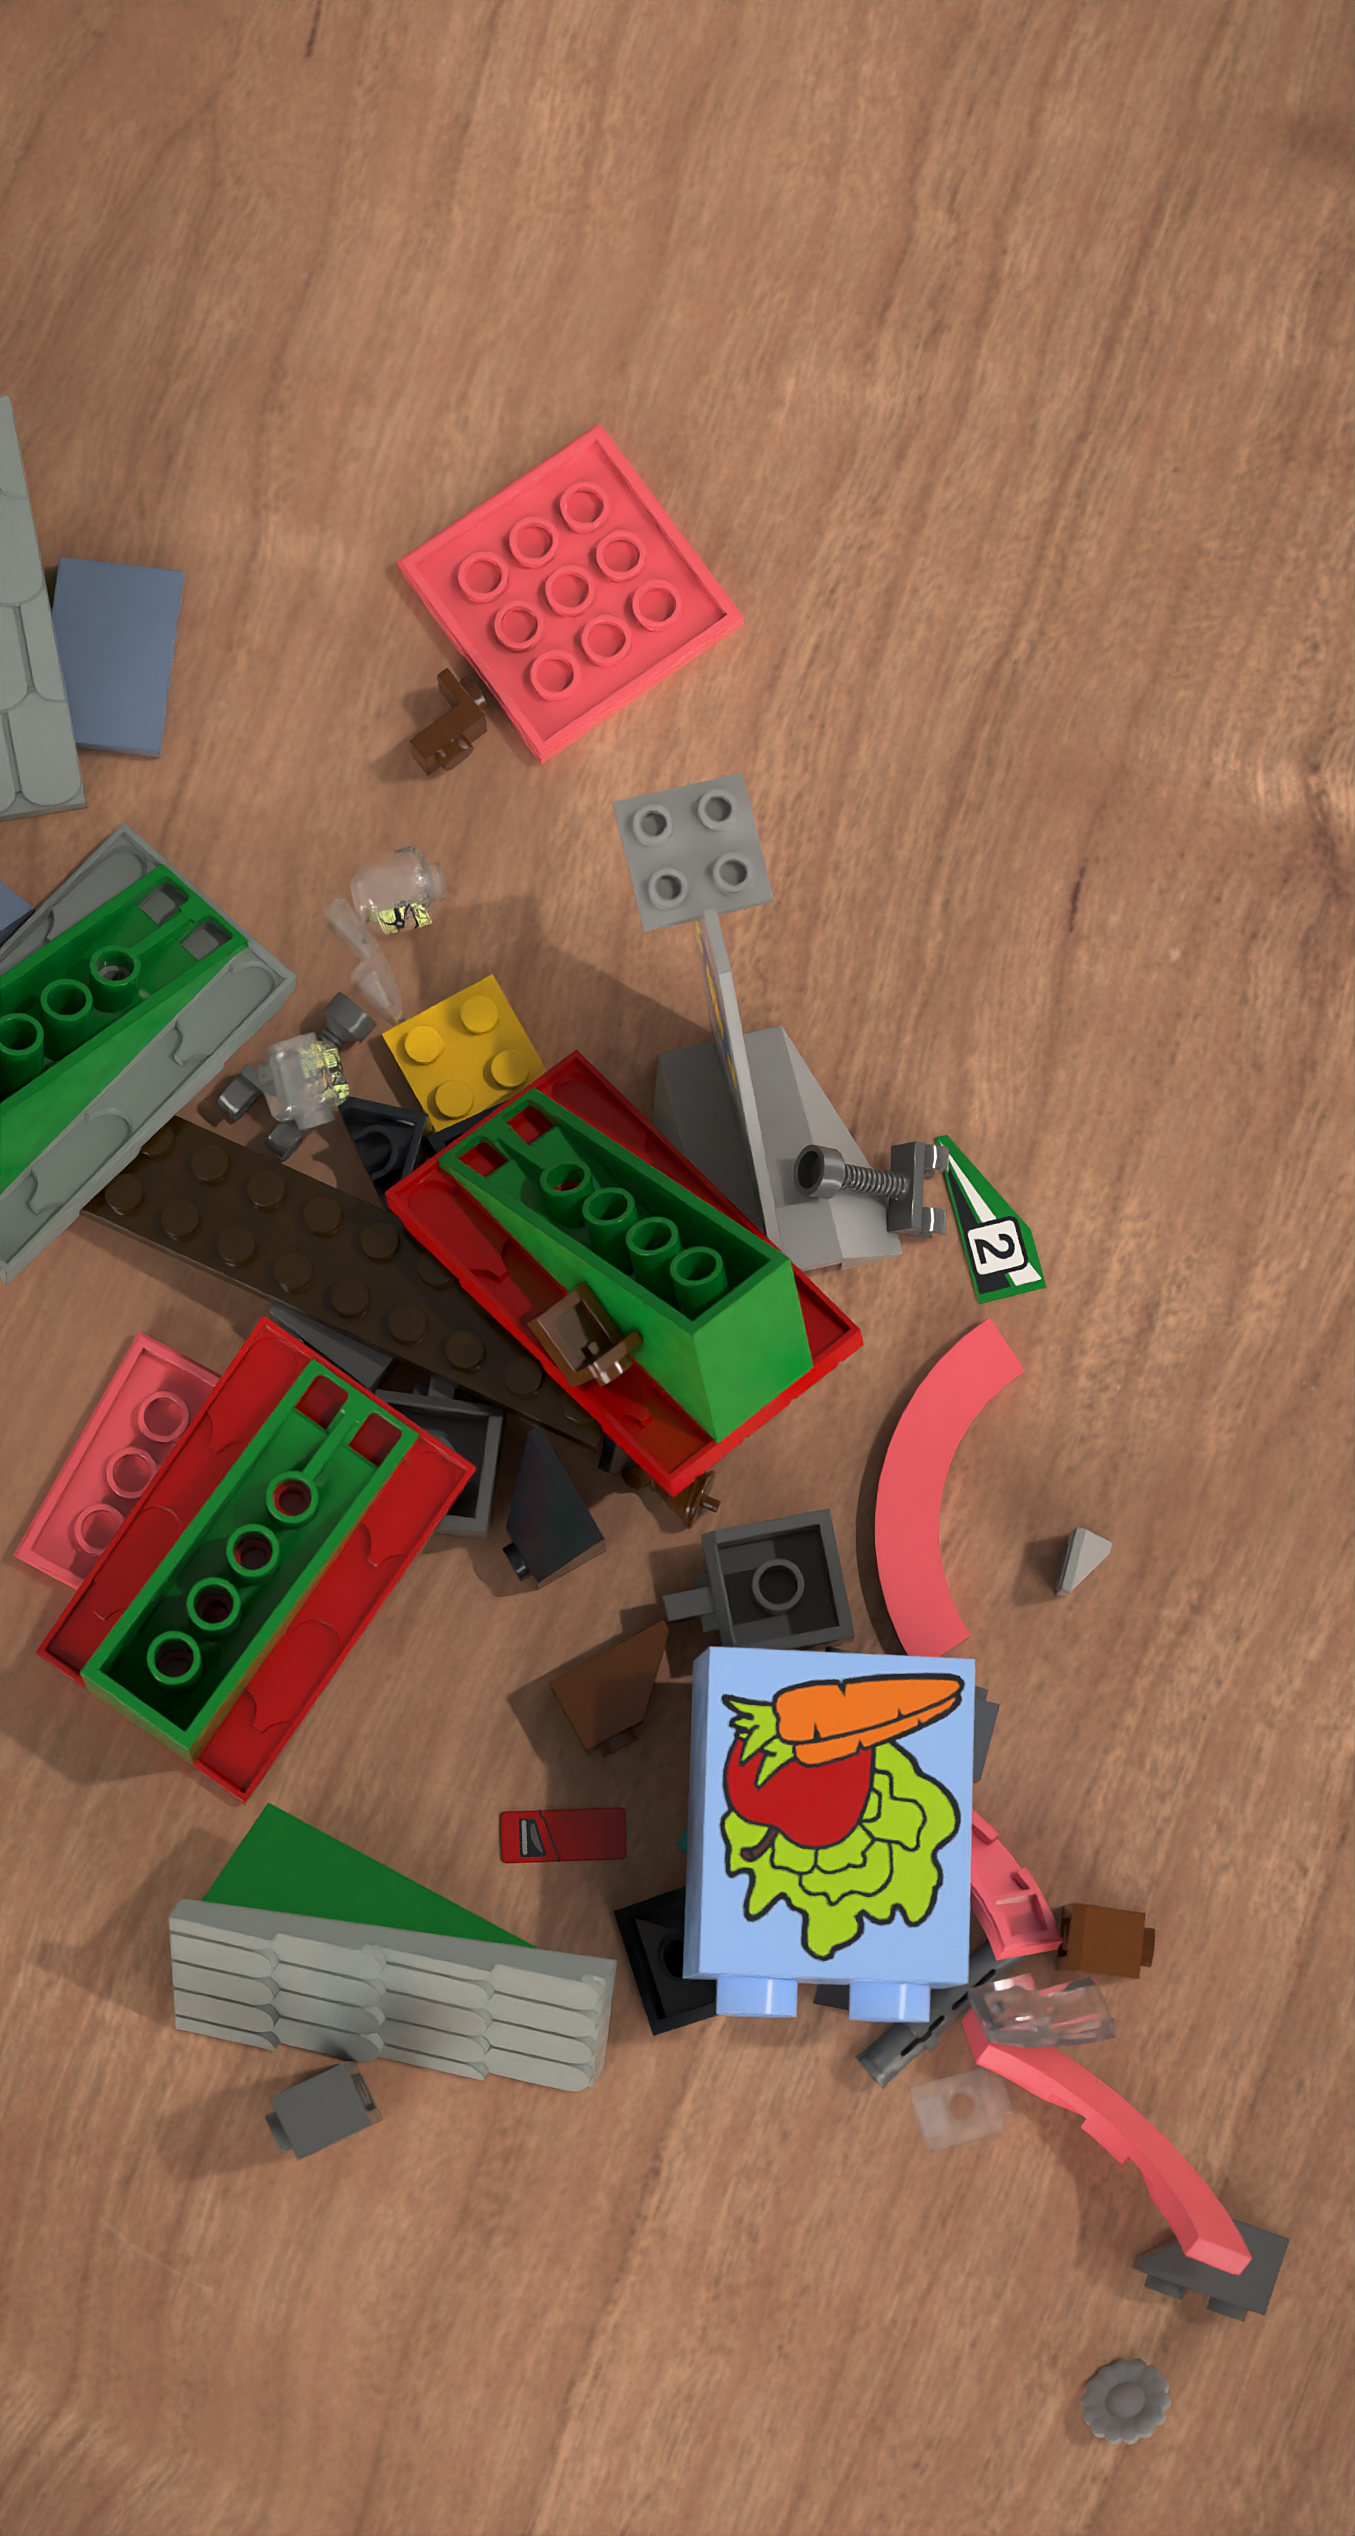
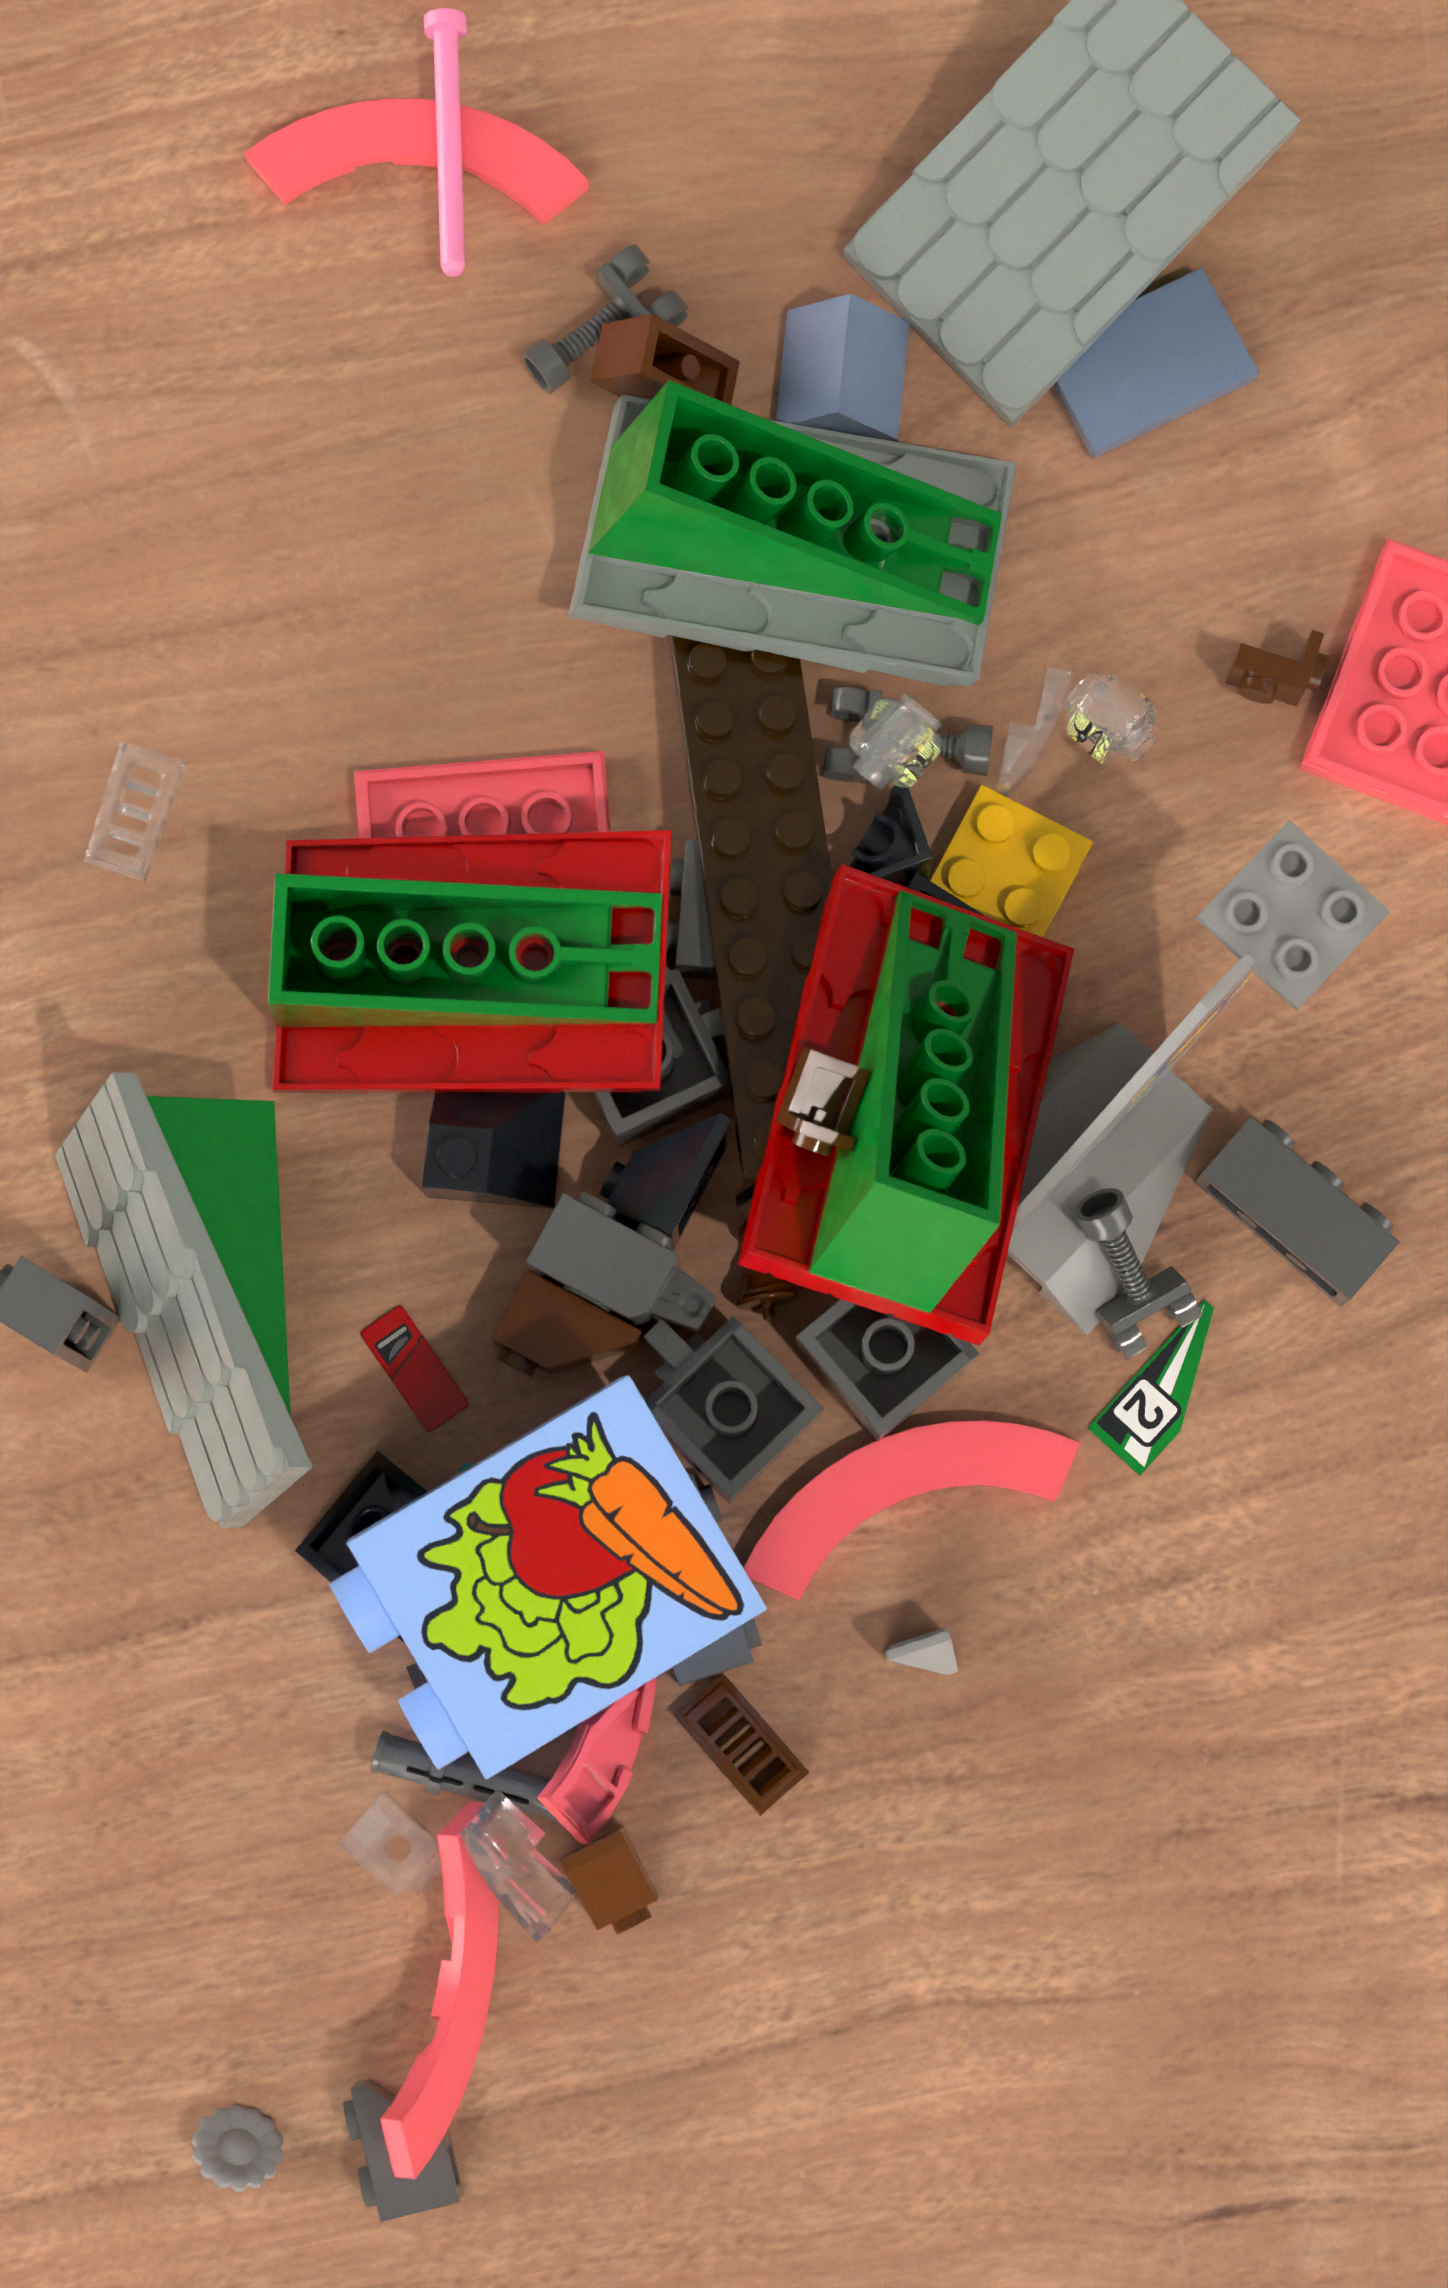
camera: 60 degrees right, 0 degrees up
(422, 1644) = (494, 1147): none -> black slope
(598, 1604) = (617, 1268): none -> dark grey hinge
(820, 1439) = (881, 1362): none -> dark grey hinge
(913, 1011) = (1298, 1210): none -> dark grey brick
(1113, 1750) = (774, 1788): none -> reddish brown slope

